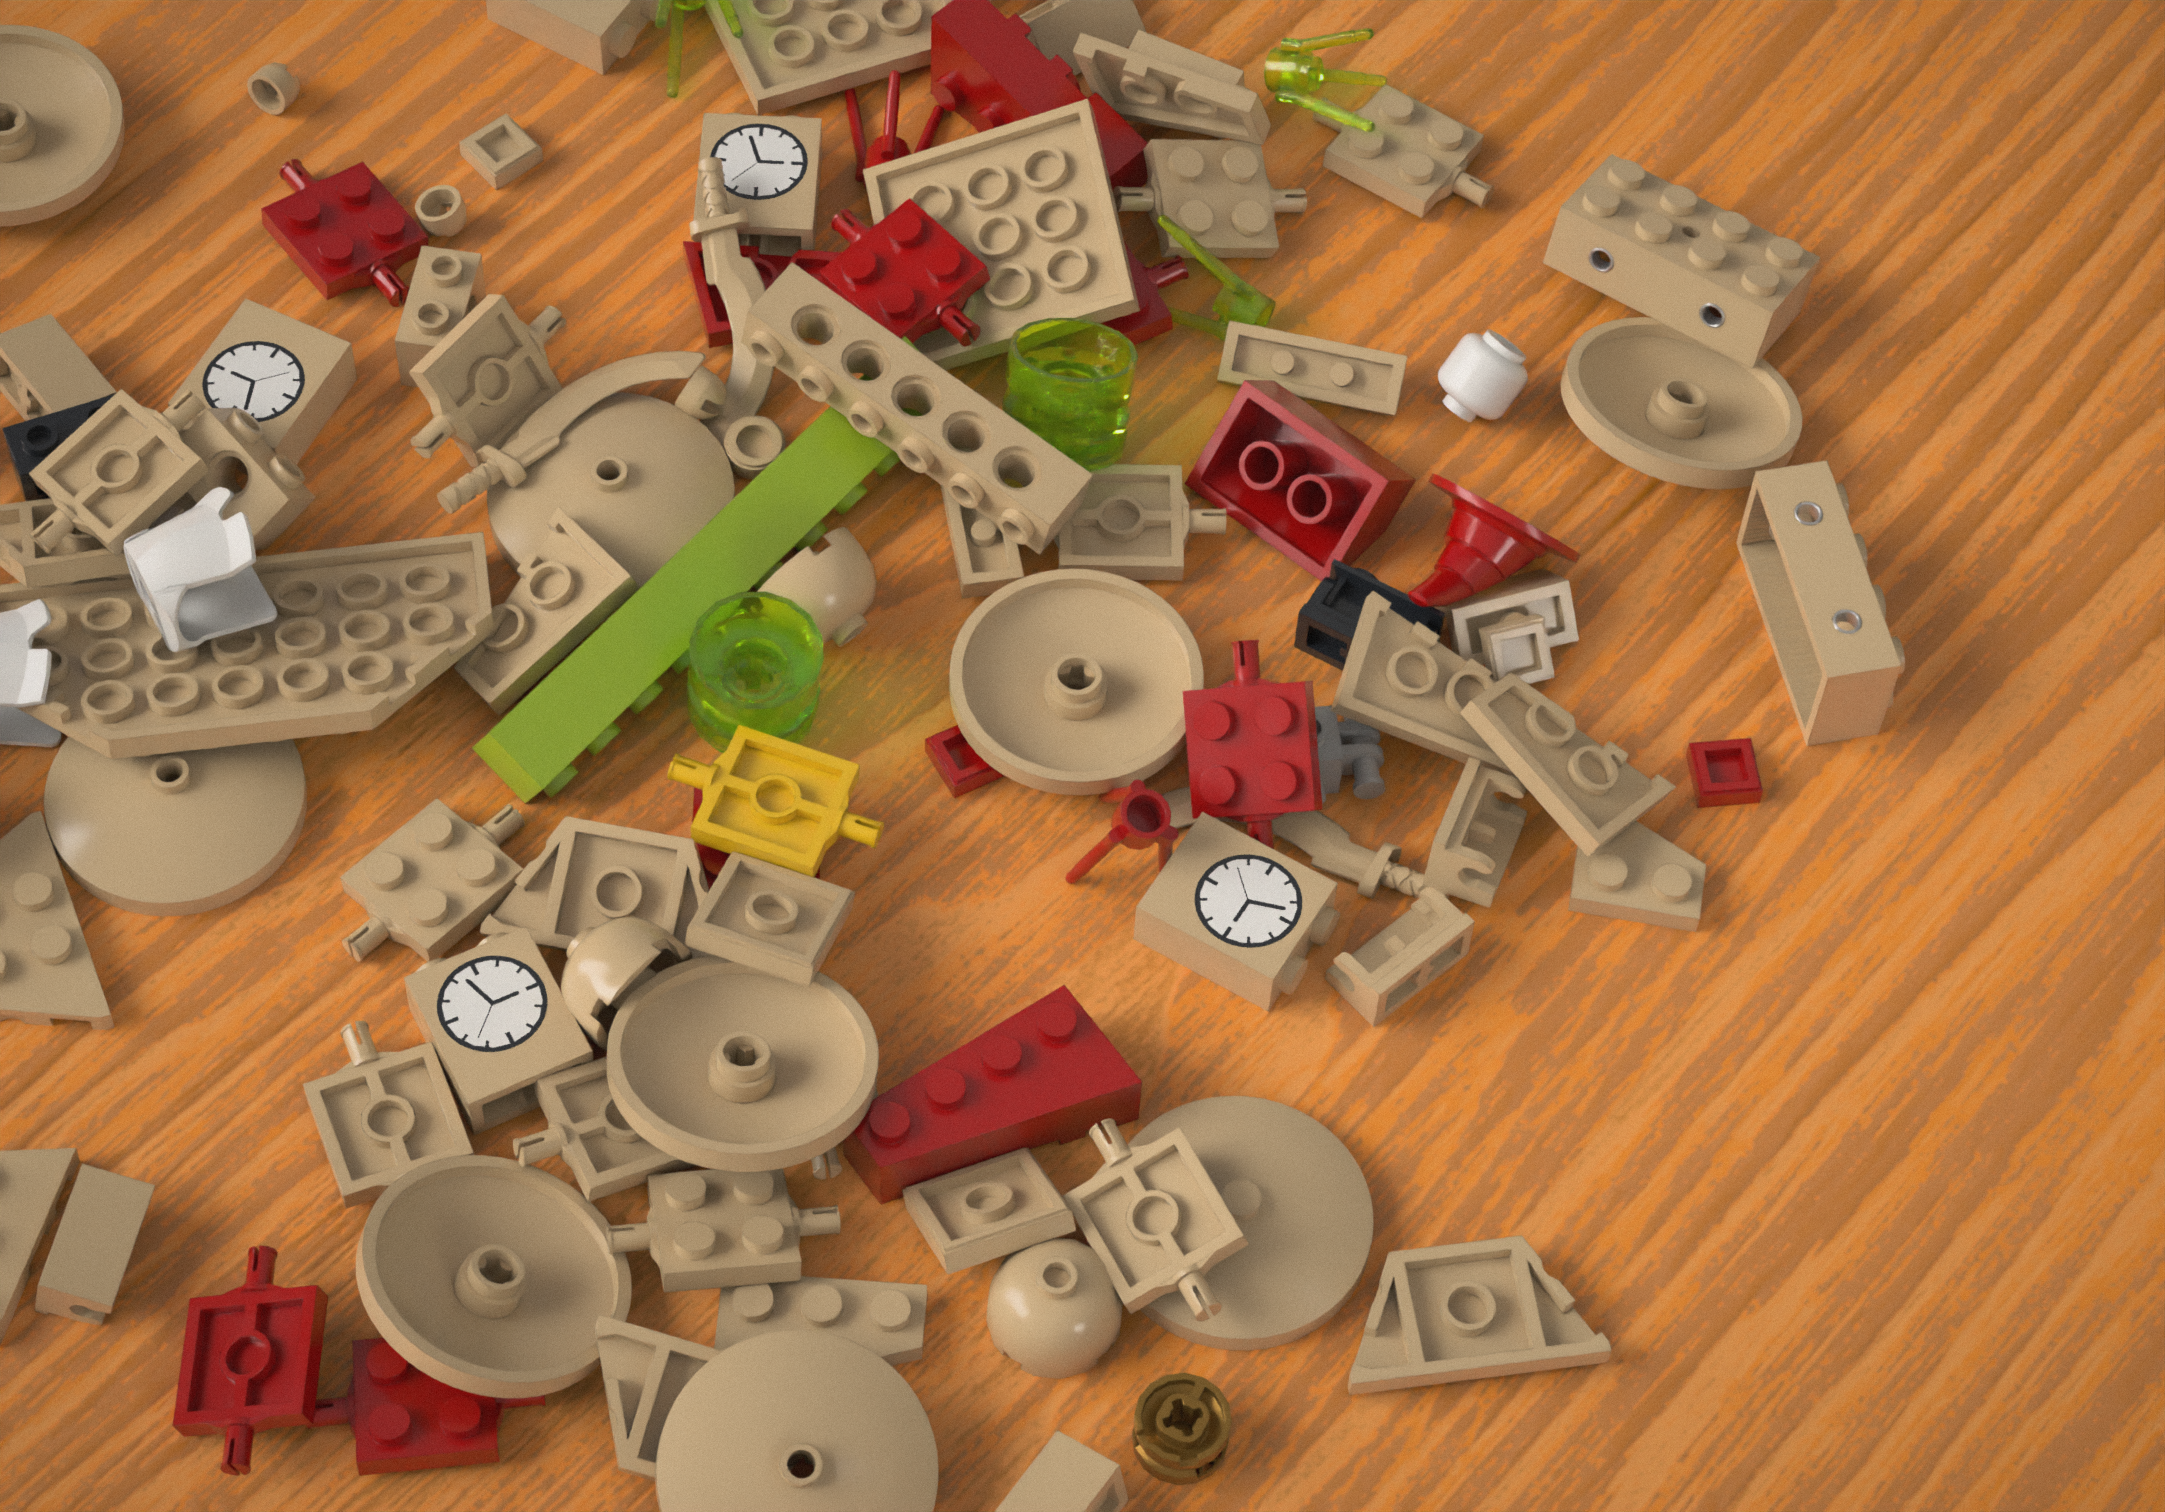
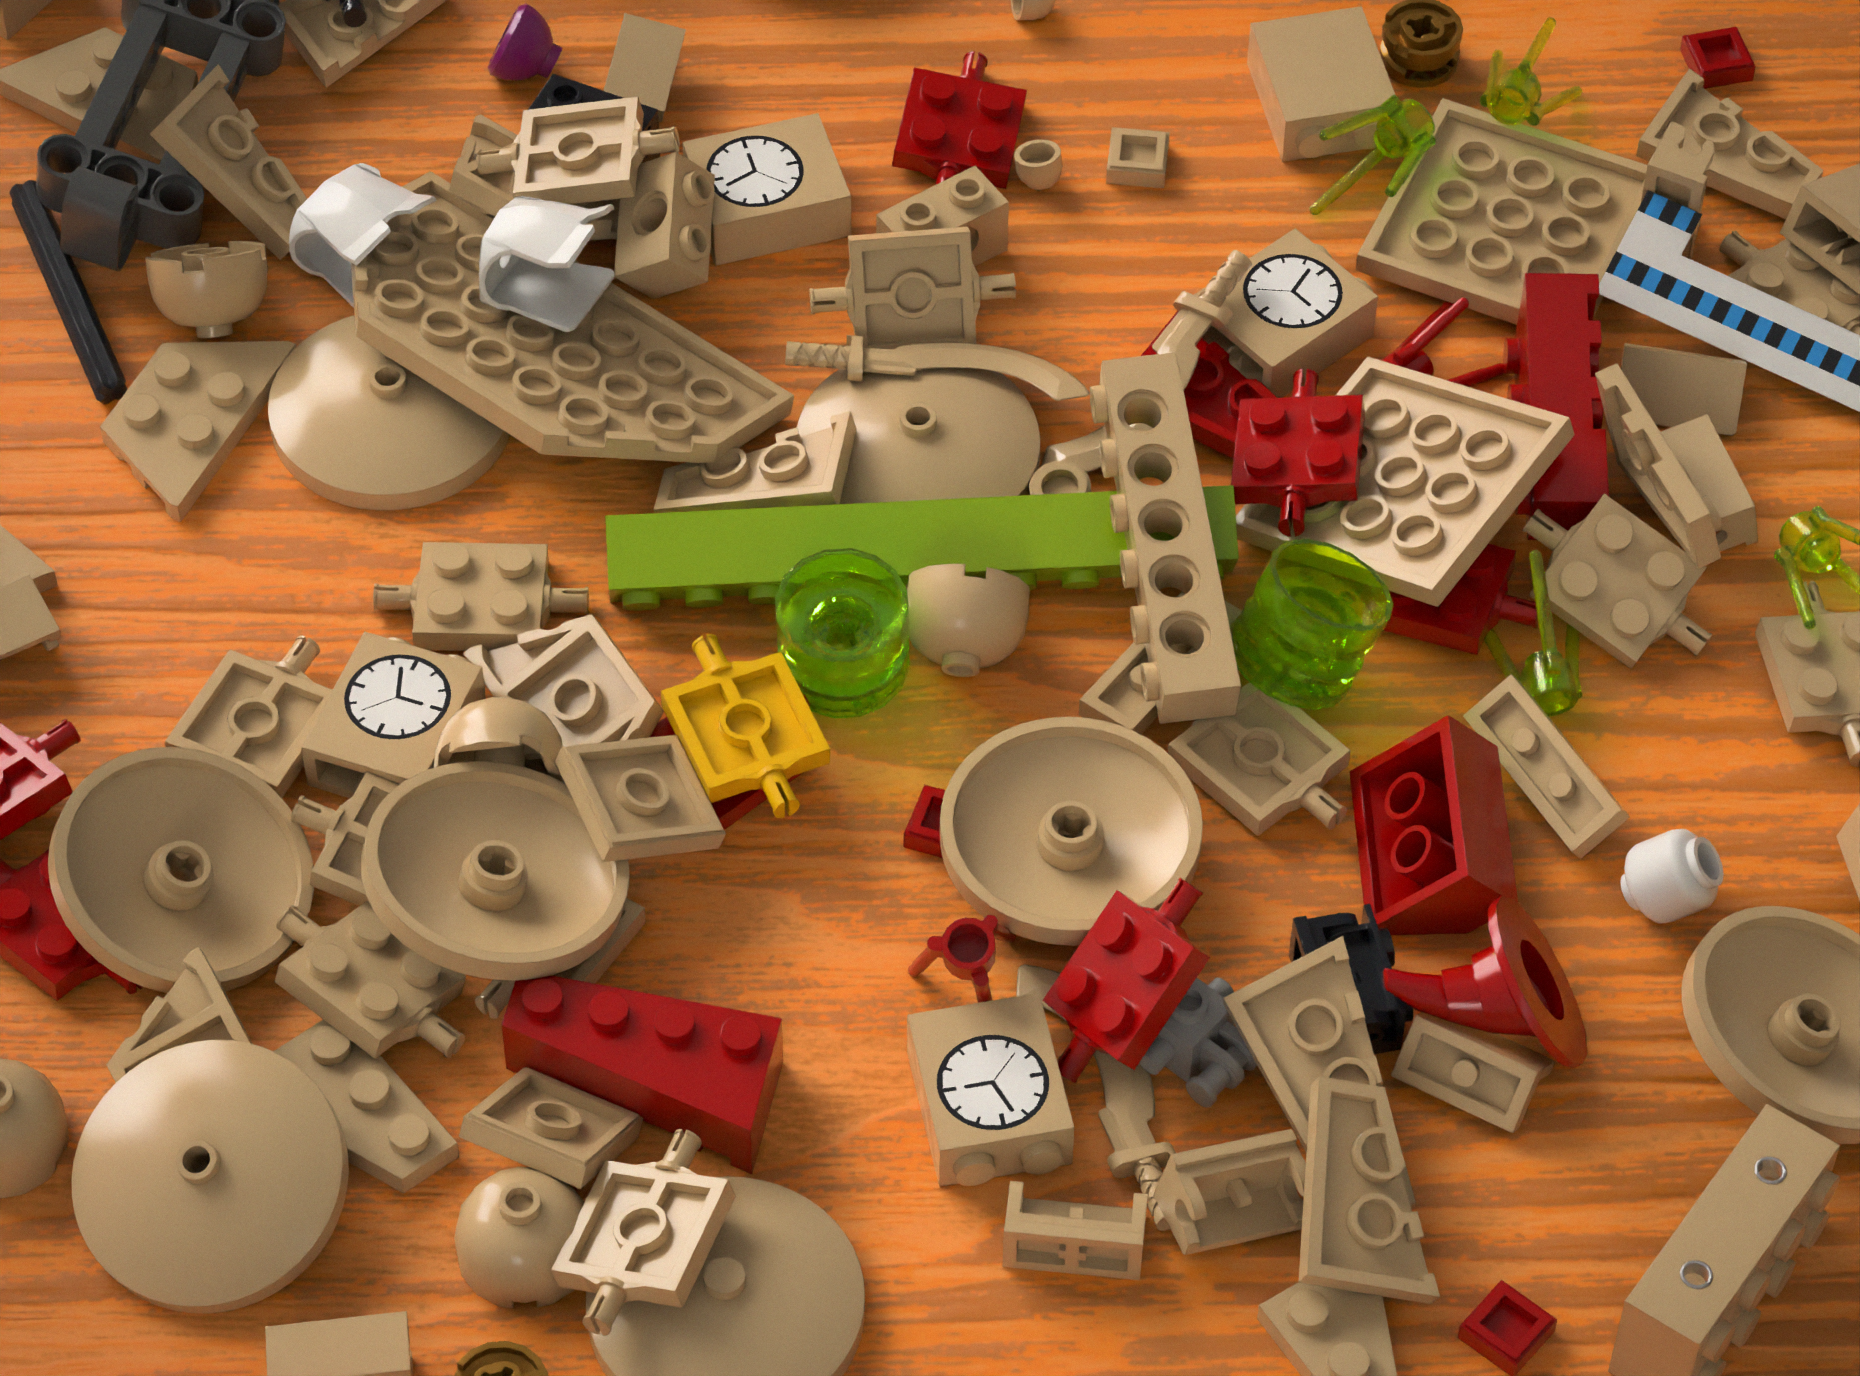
camera: 50 degrees right, 5 degrees down
(701, 394) = (1059, 421): tan hinge -> none
(1518, 648) = (1443, 1096): tan tile -> none

